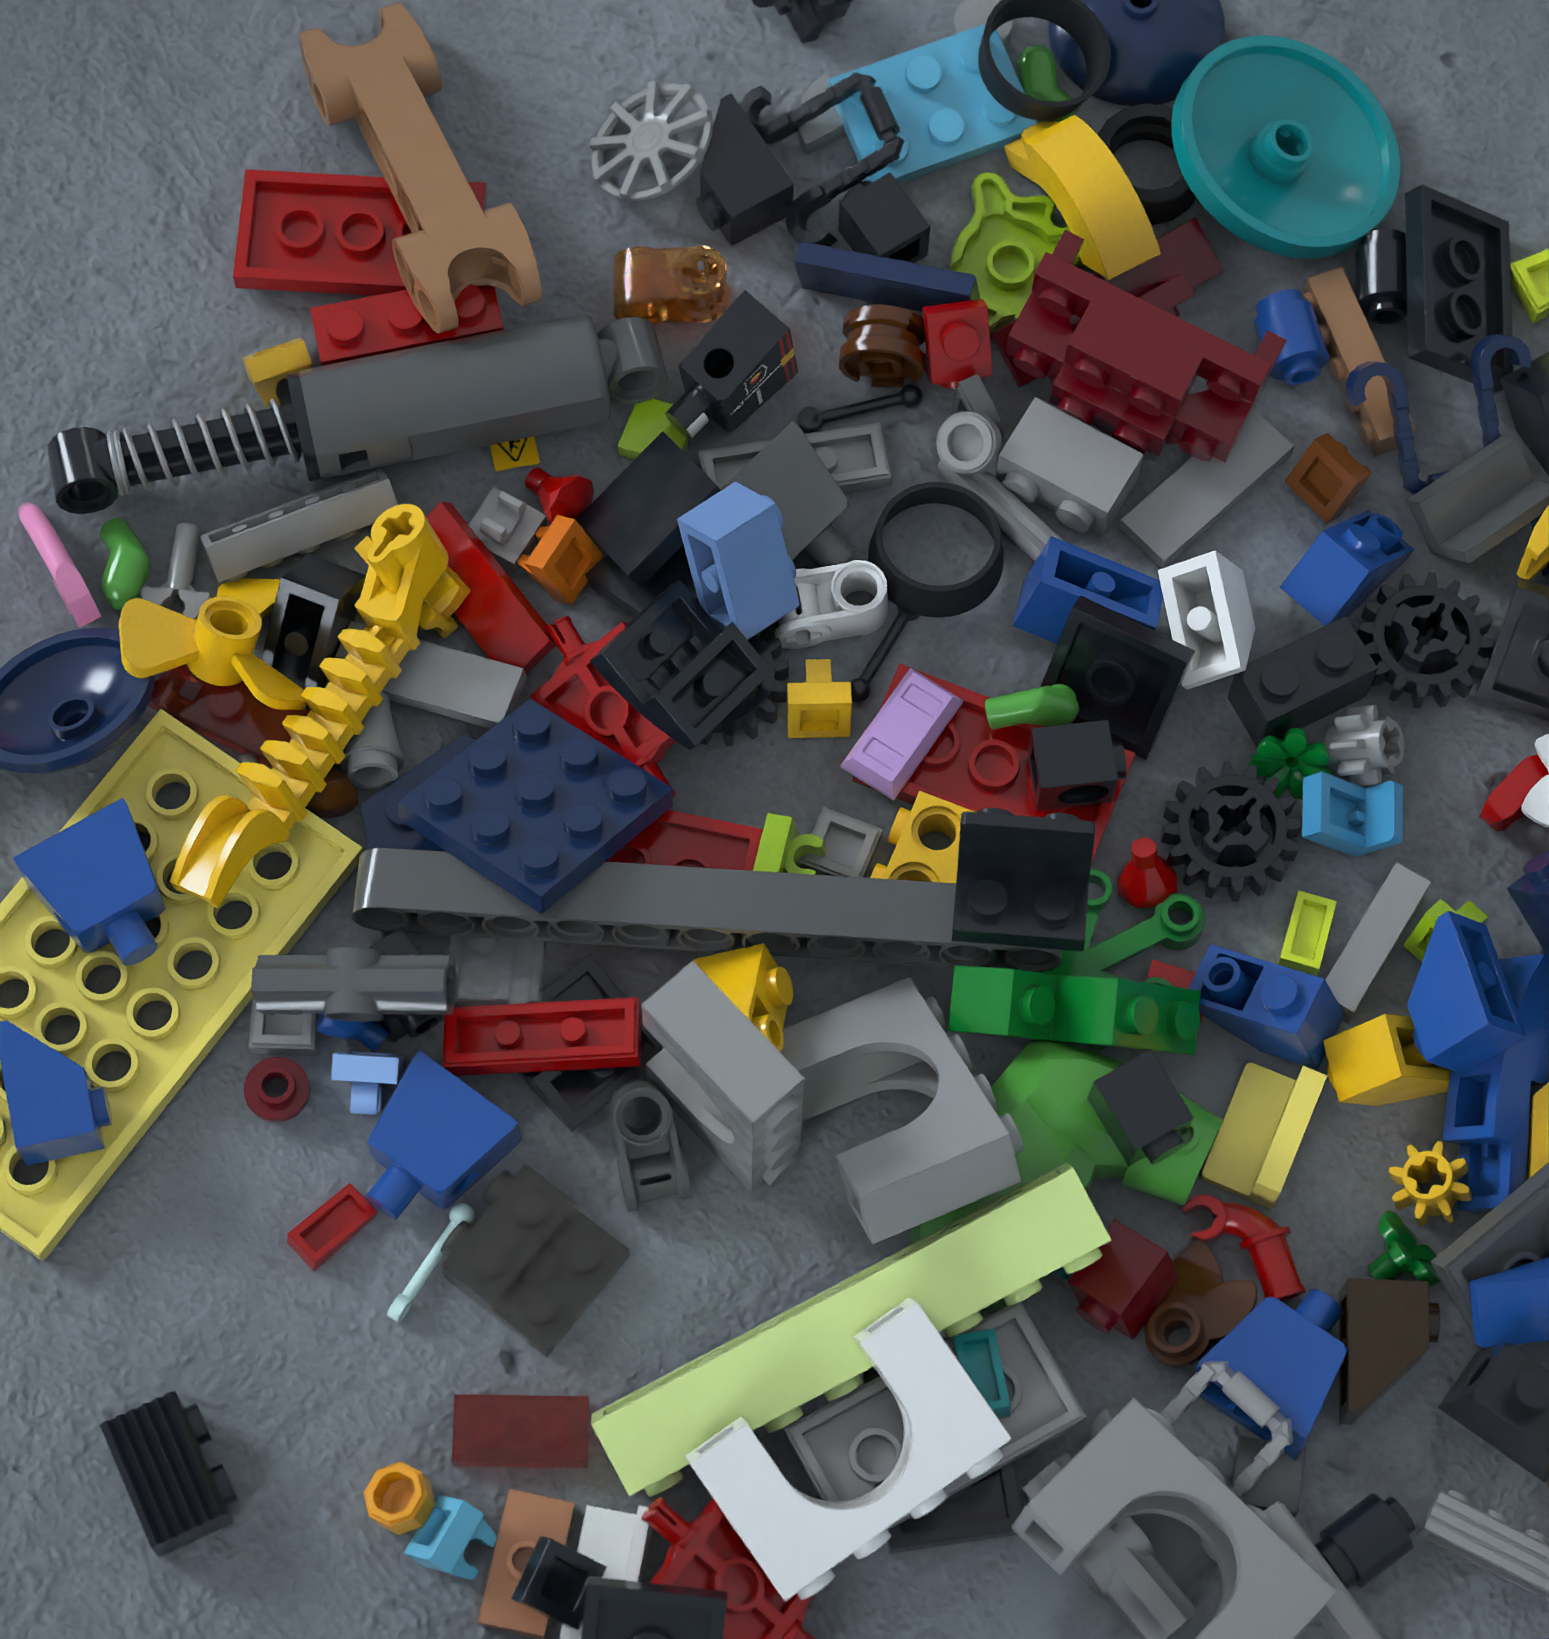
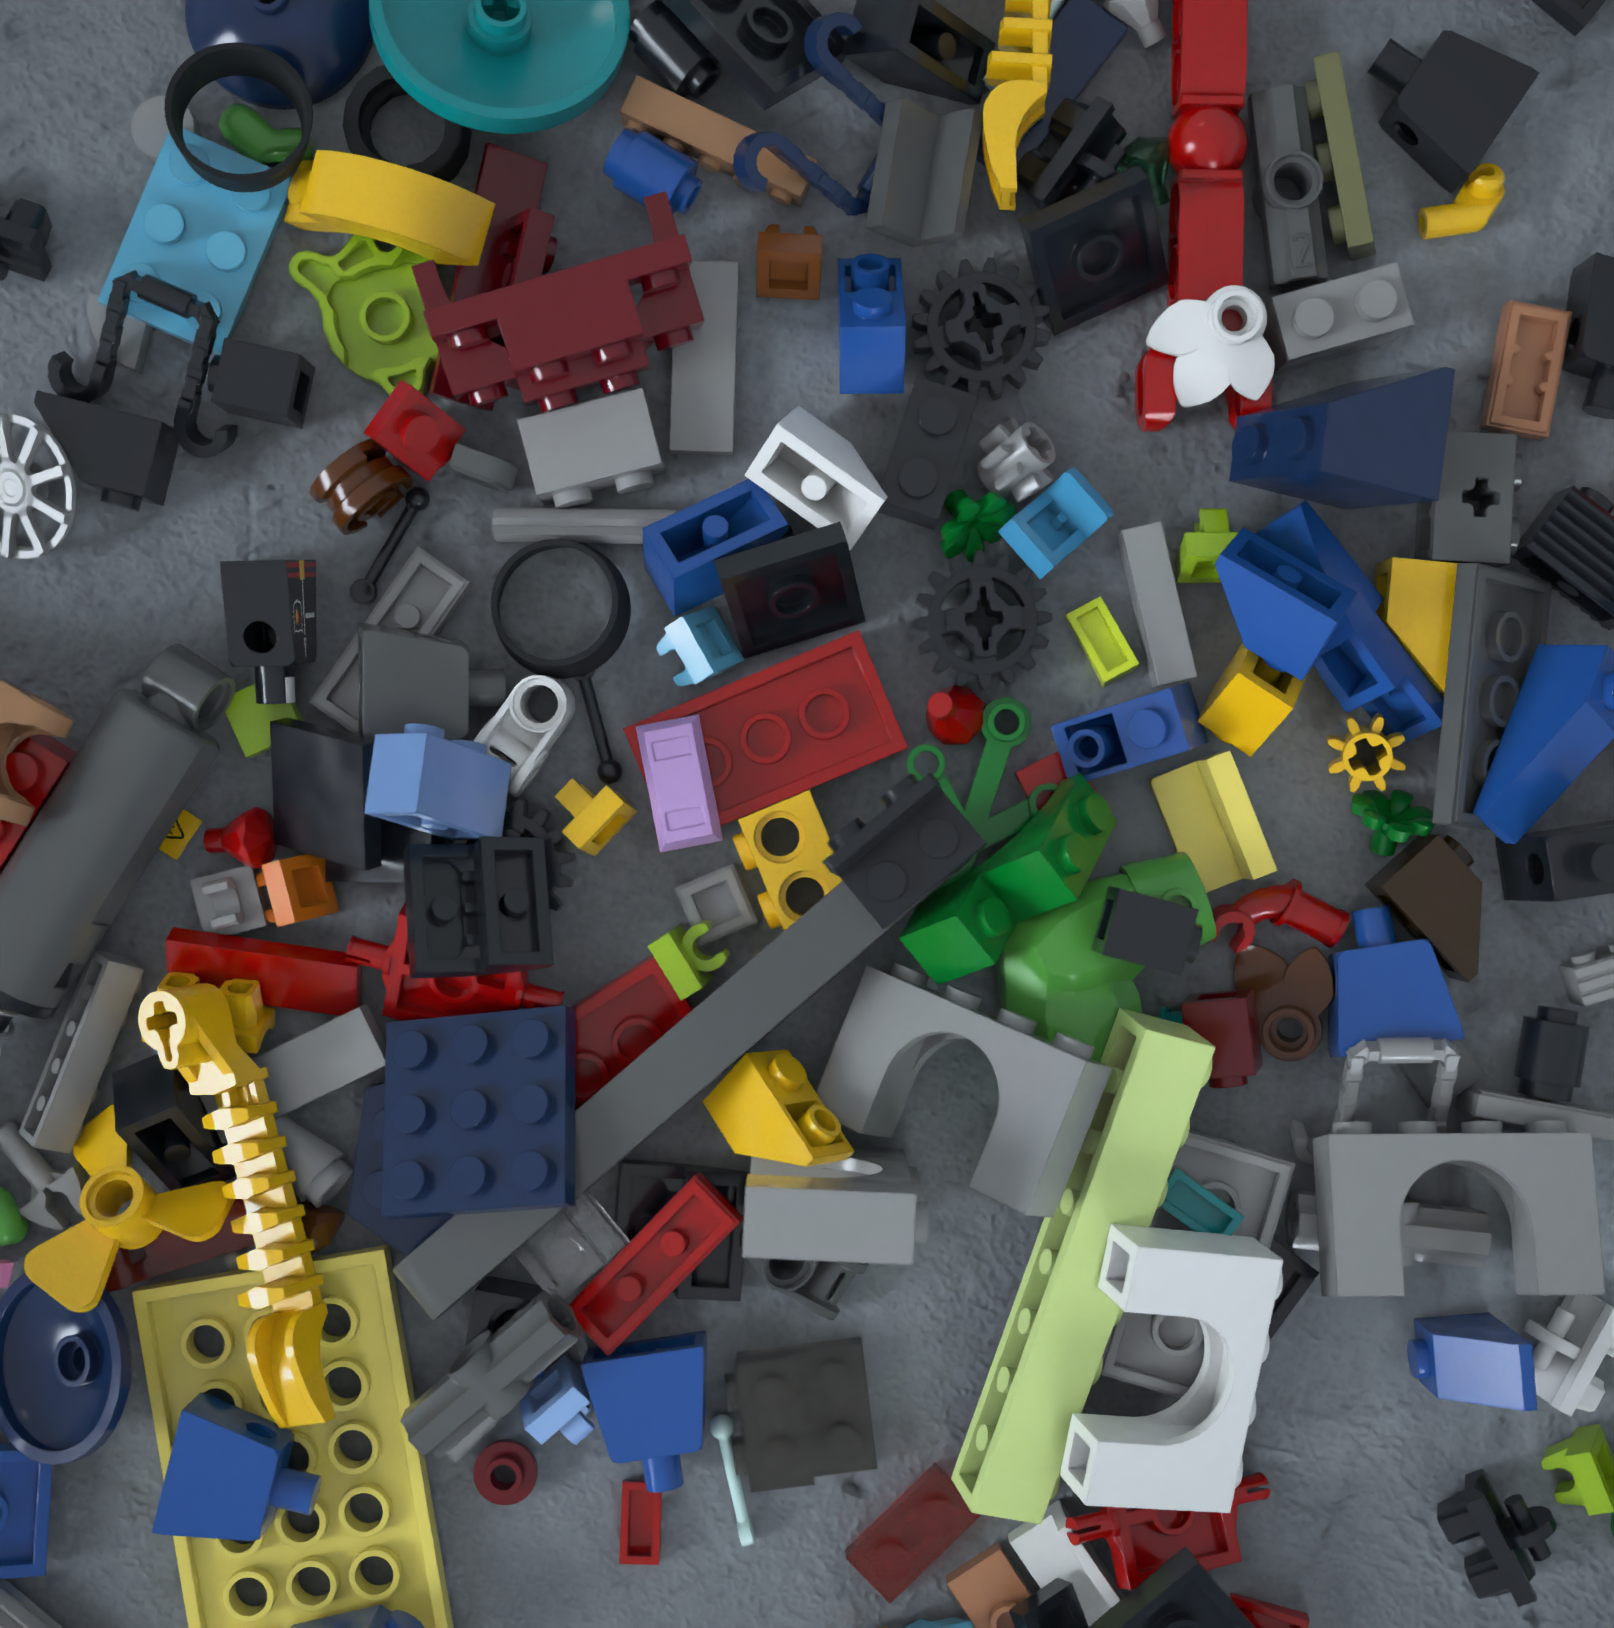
camera: 45 degrees left, 20 degrees up
(664, 282) = (144, 598): clear orange piece -> none
(881, 278) = (308, 429): dark blue tile -> none
(969, 443) = (504, 505): light grey tile -> none
(1012, 660) = (702, 646): none -> medium azure tile
(1037, 706) = (767, 660): bright green arm -> none
(1074, 764) = (832, 689): black brick -> none

